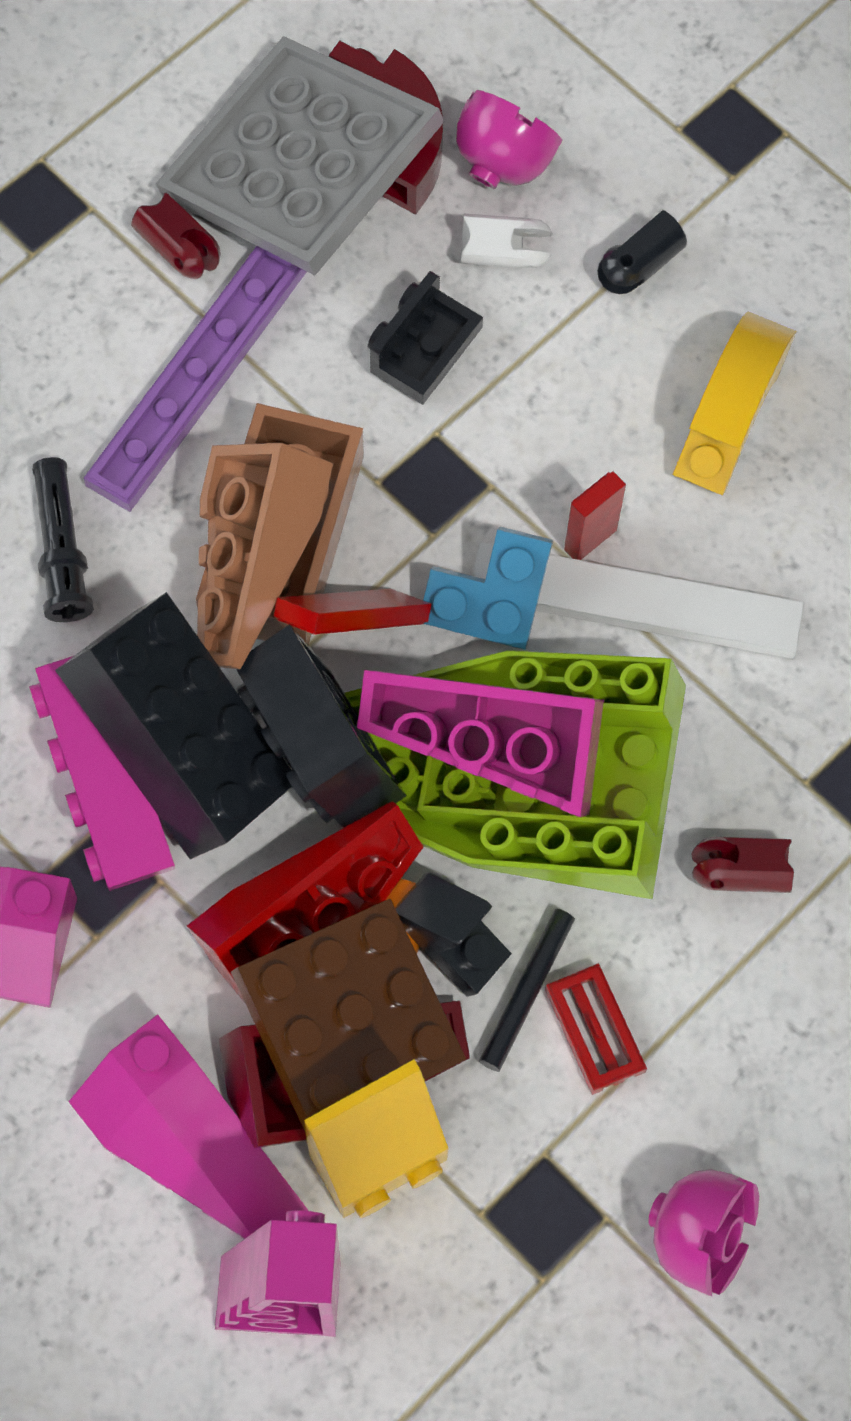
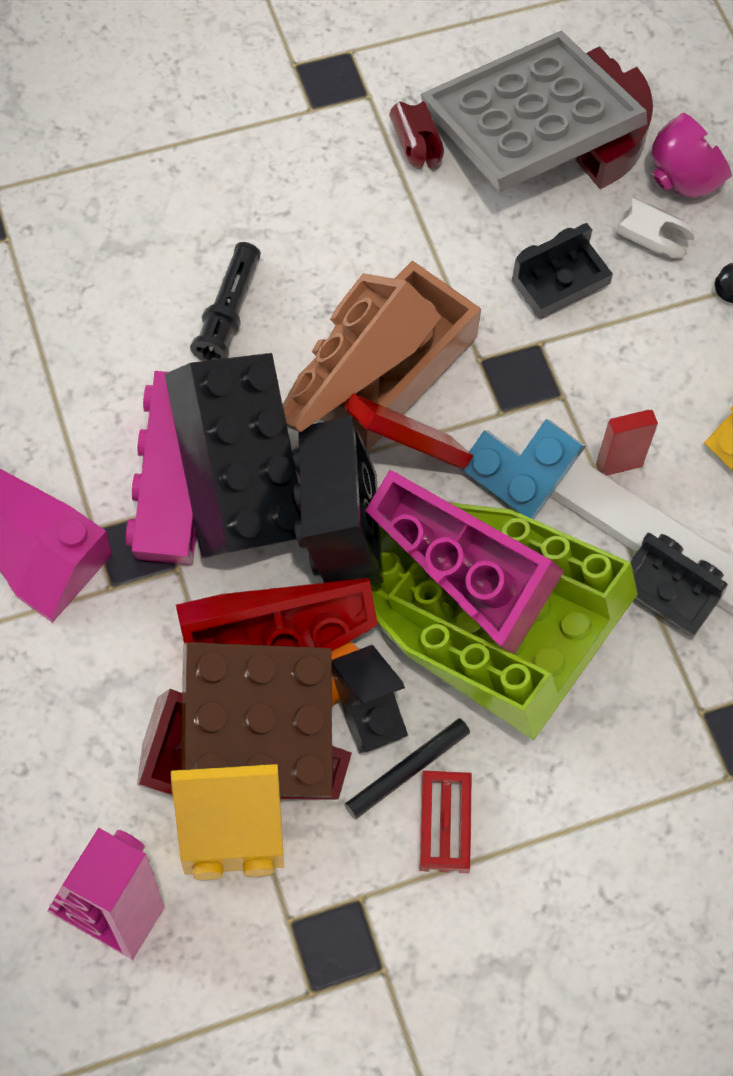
camera: 25 degrees right, 5 degrees down
(172, 1123) = (93, 746): dark pink wedge -> none
(193, 378) = (381, 234): medium lavender tile -> none
(702, 1227) = (451, 1010): dark pink cylinder -> none
(719, 655) = (675, 584): none -> black bracket
(743, 864) = (620, 749): dark red piece -> none

